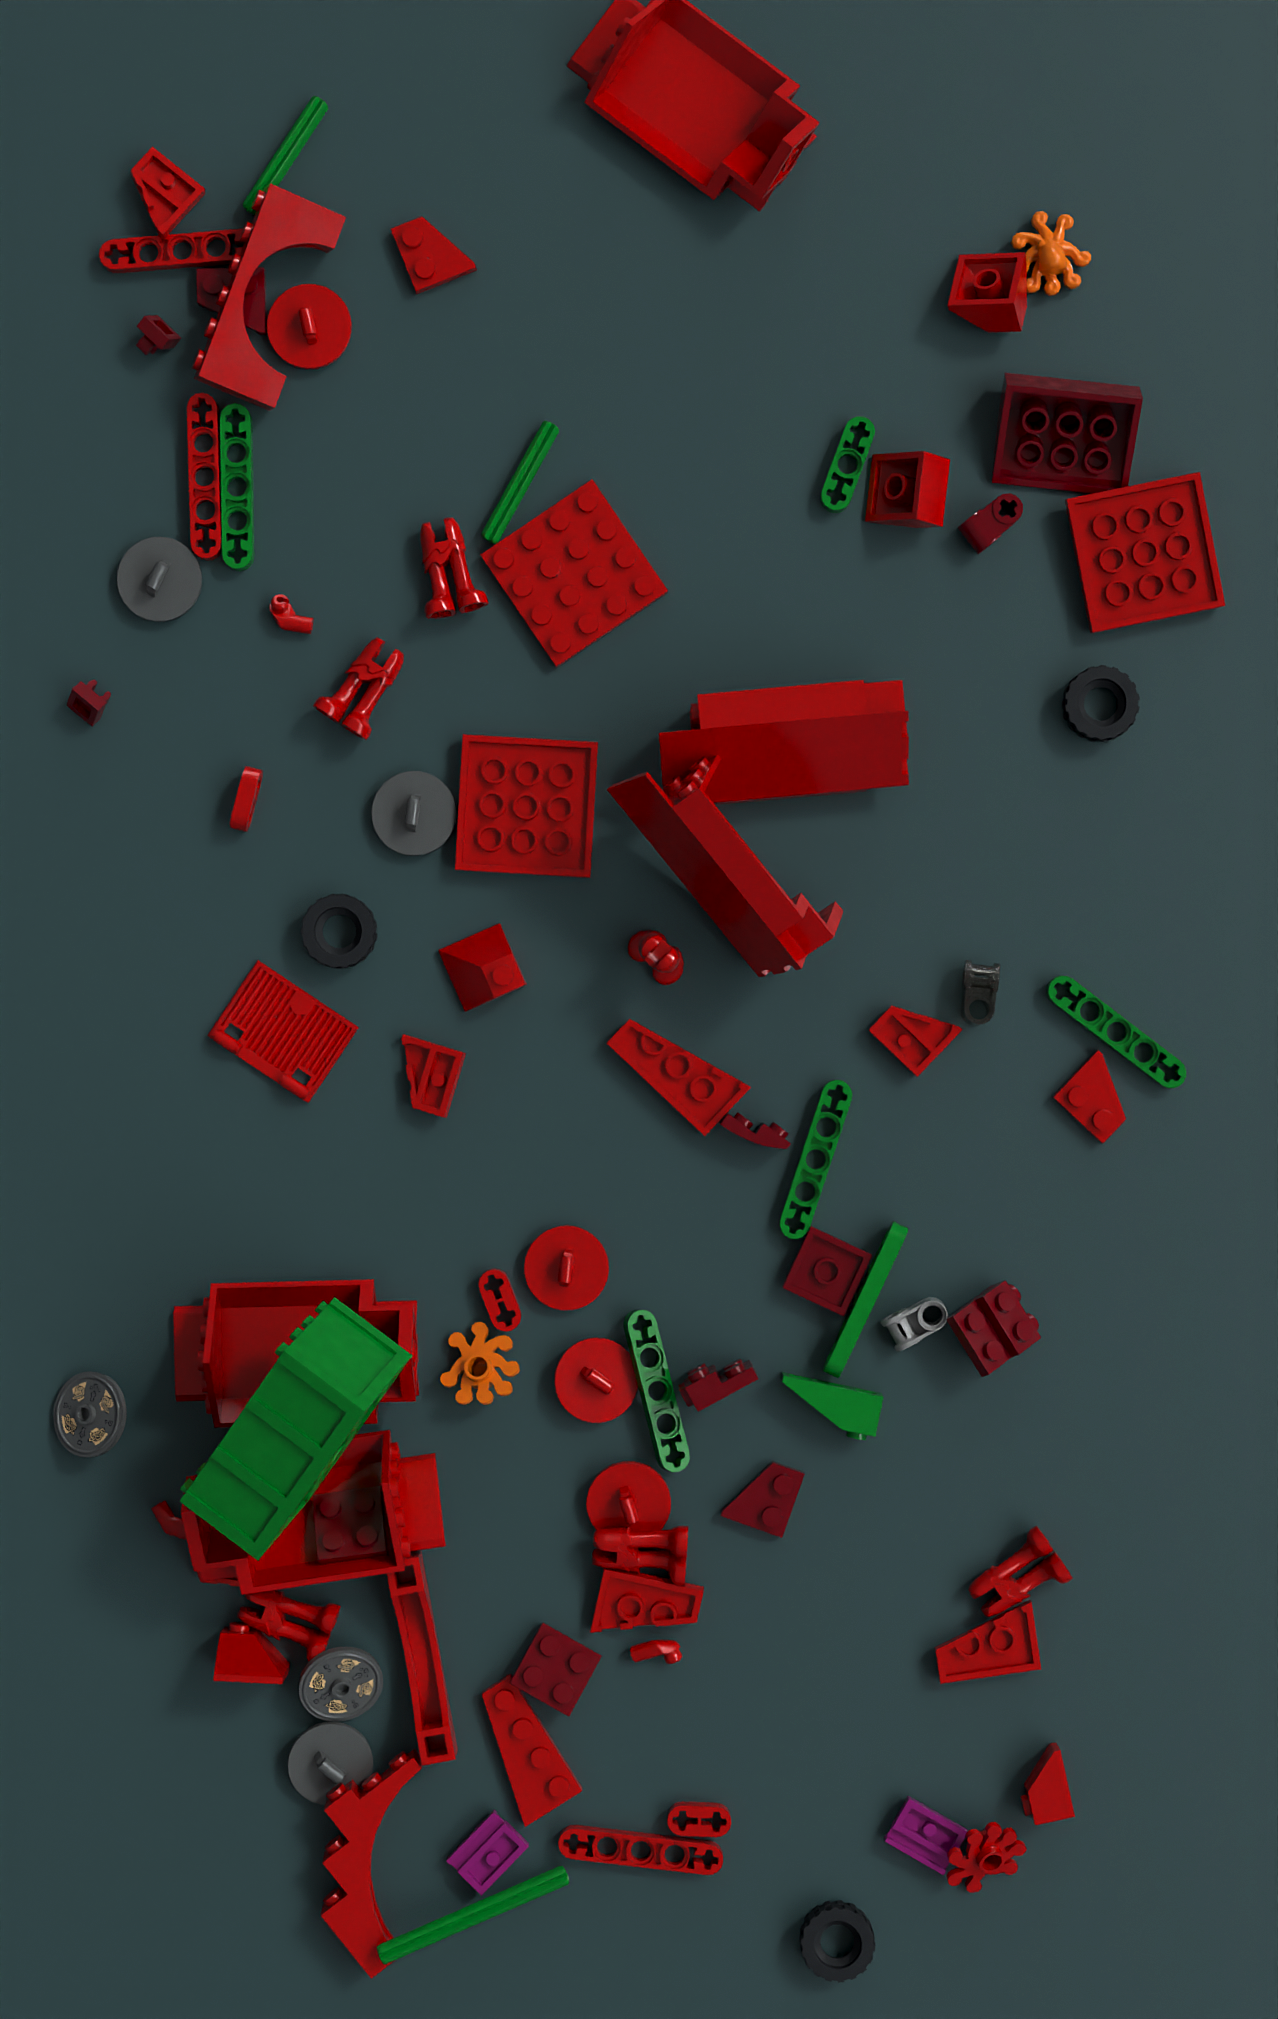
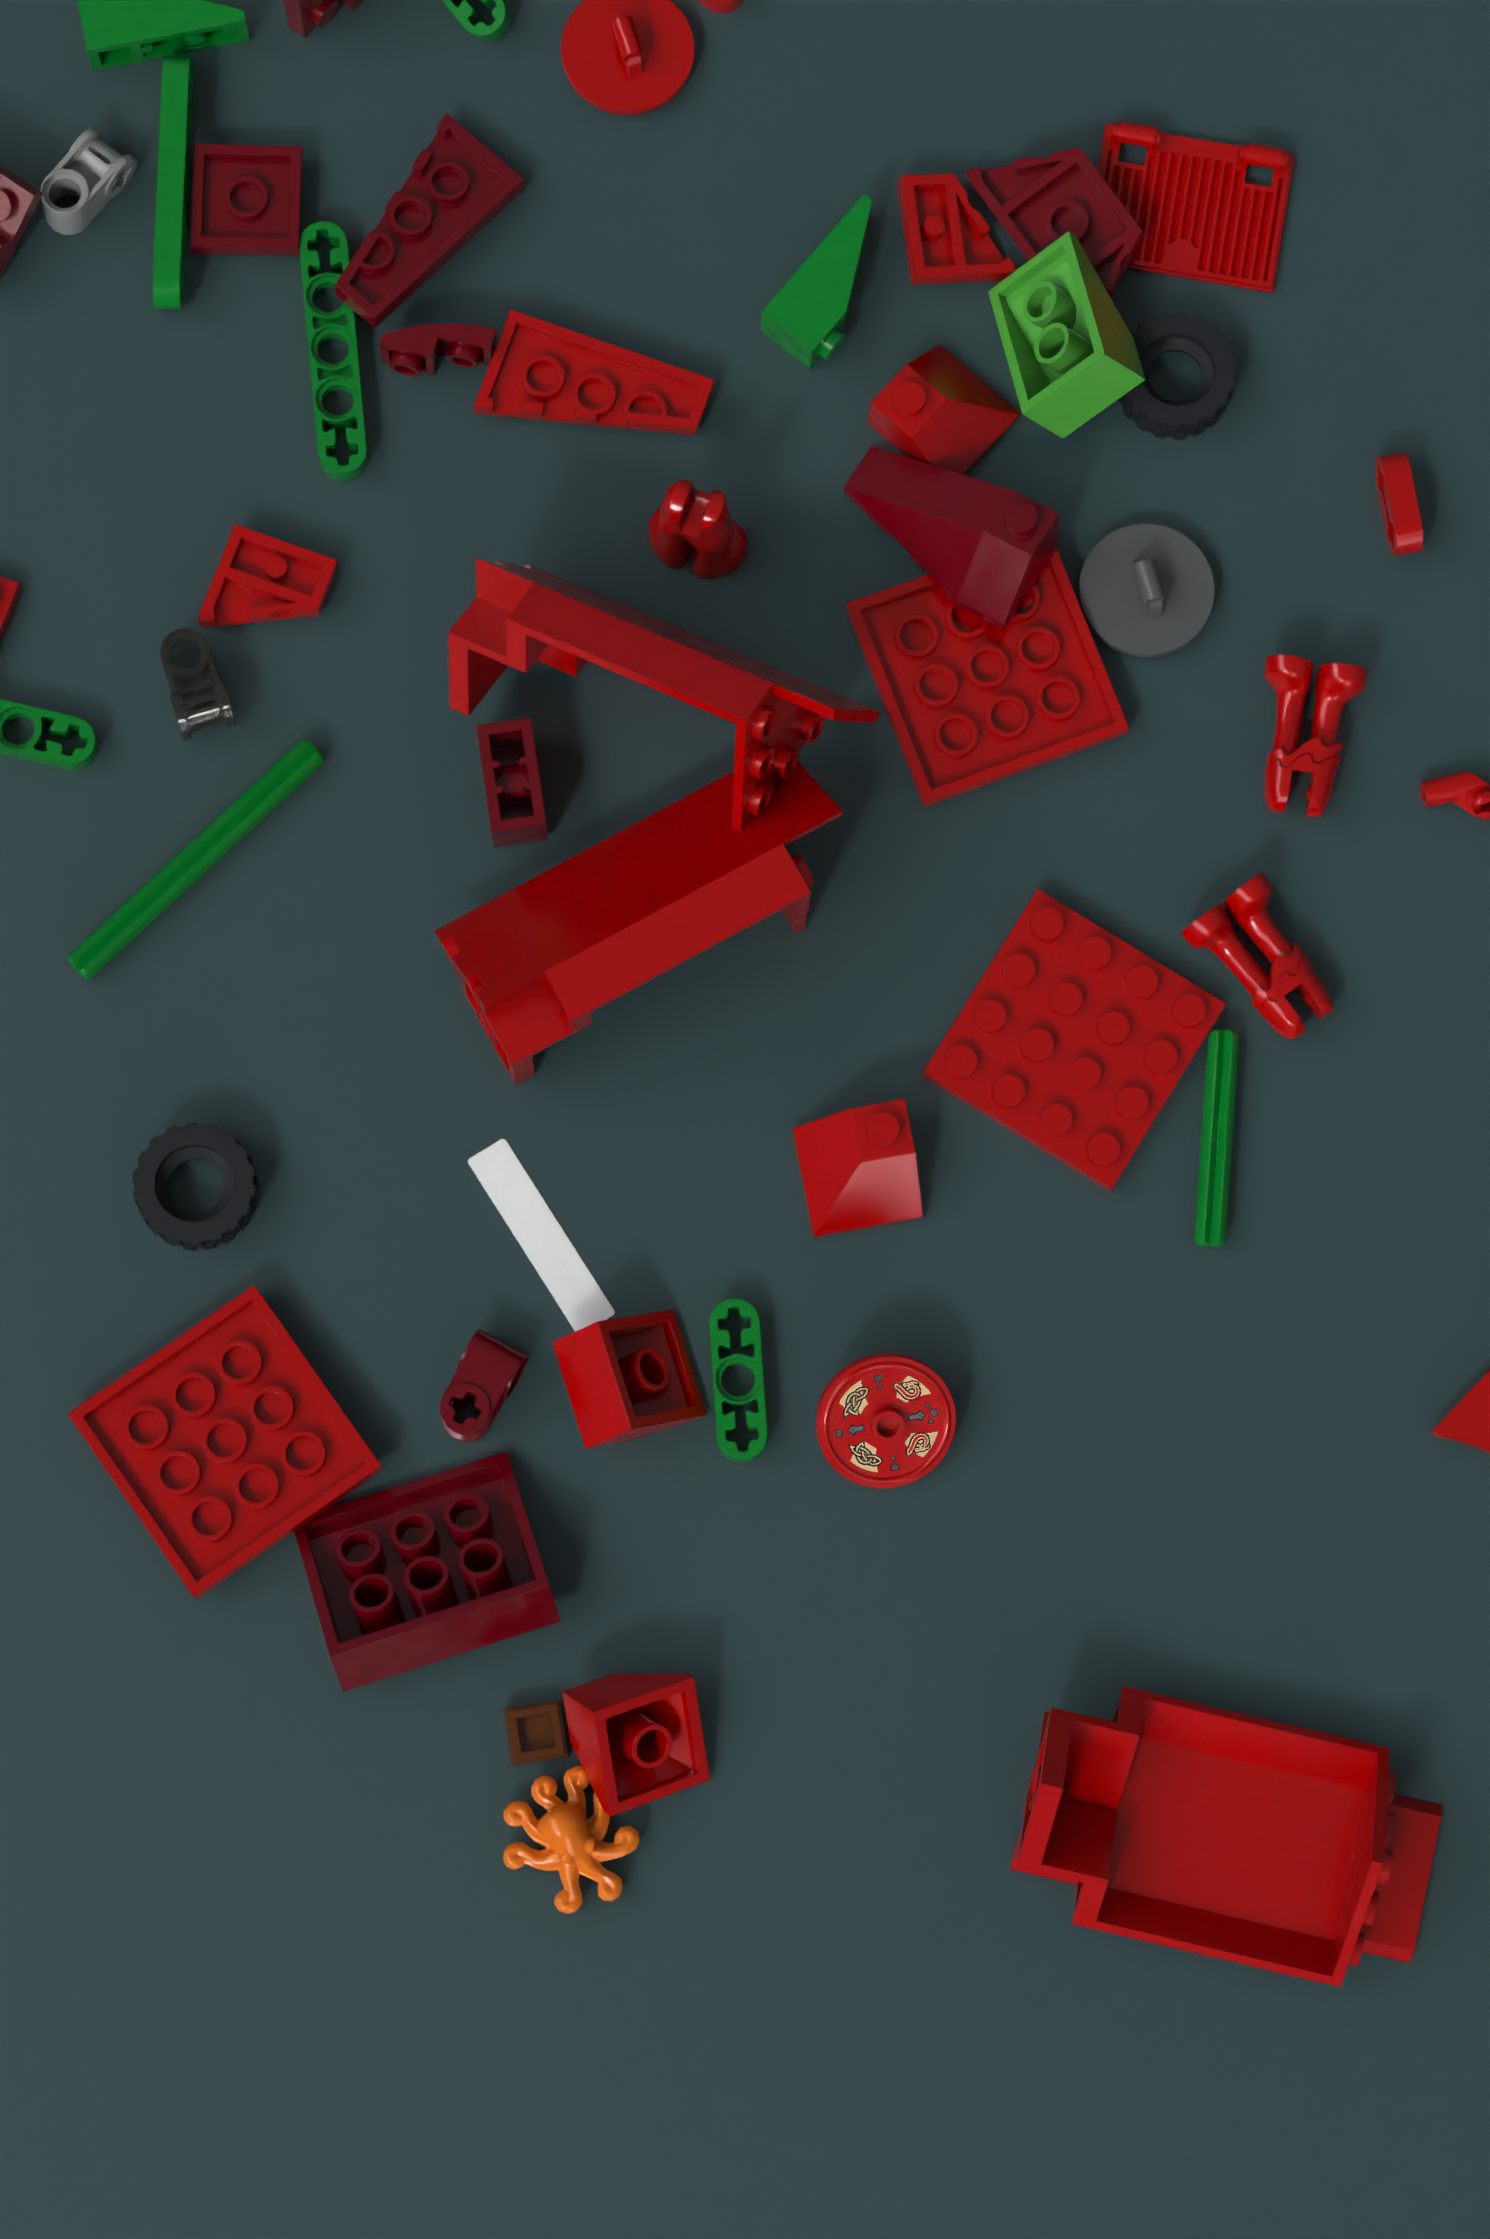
camera: 155 degrees right, 10 degrees down
(362, 1046) = (1058, 194): none -> dark red wing
(396, 976) = (1063, 338): none -> bright green slope
(506, 885) = (964, 531): none -> dark red wedge
(523, 1066) = (814, 304): none -> green slope
(722, 1214) = (438, 210): none -> dark red wing
(728, 552) = (859, 1169): none -> red slope
(778, 402) = (885, 1420): none -> red shield
(826, 853) = (512, 782): none -> dark red brick
(919, 595) = (540, 1235): none -> white sticker
(1020, 892) = (195, 859): none -> green axle
(1042, 321) = (535, 1733): none -> reddish brown tile

